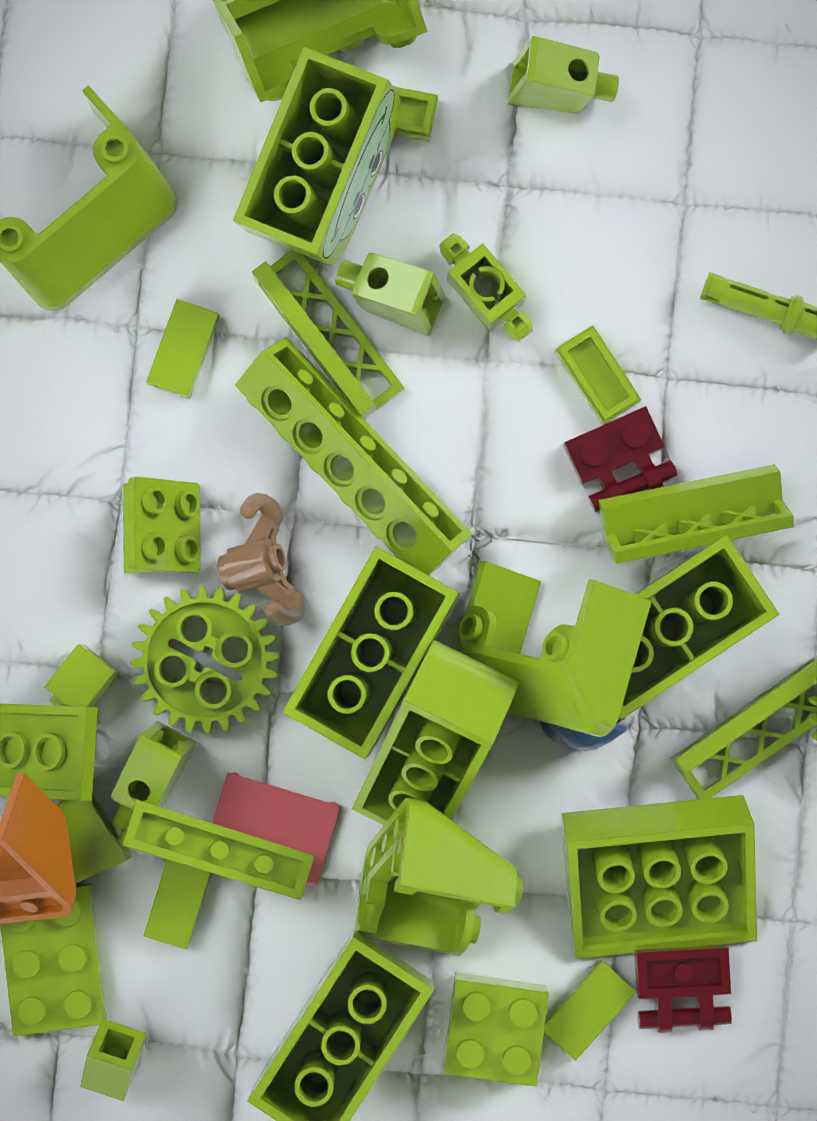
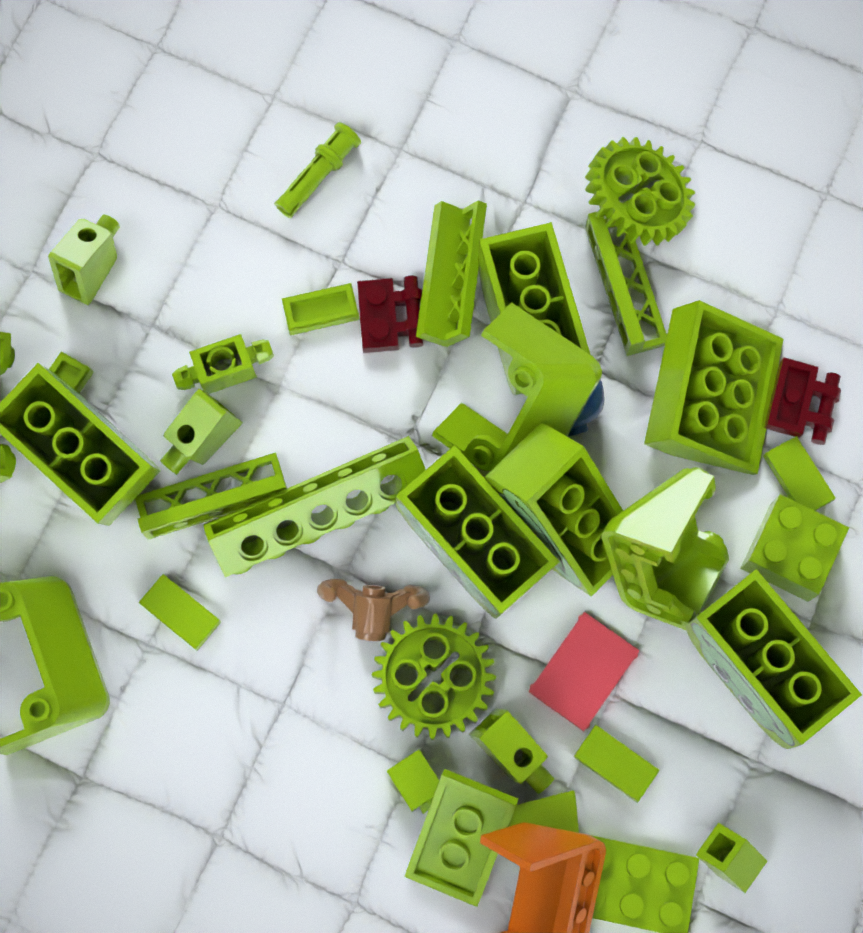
camera: 70 degrees left, 10 degrees down
(161, 526) = (314, 677): lime bracket -> none
(217, 849) = (589, 713): lime fence -> none

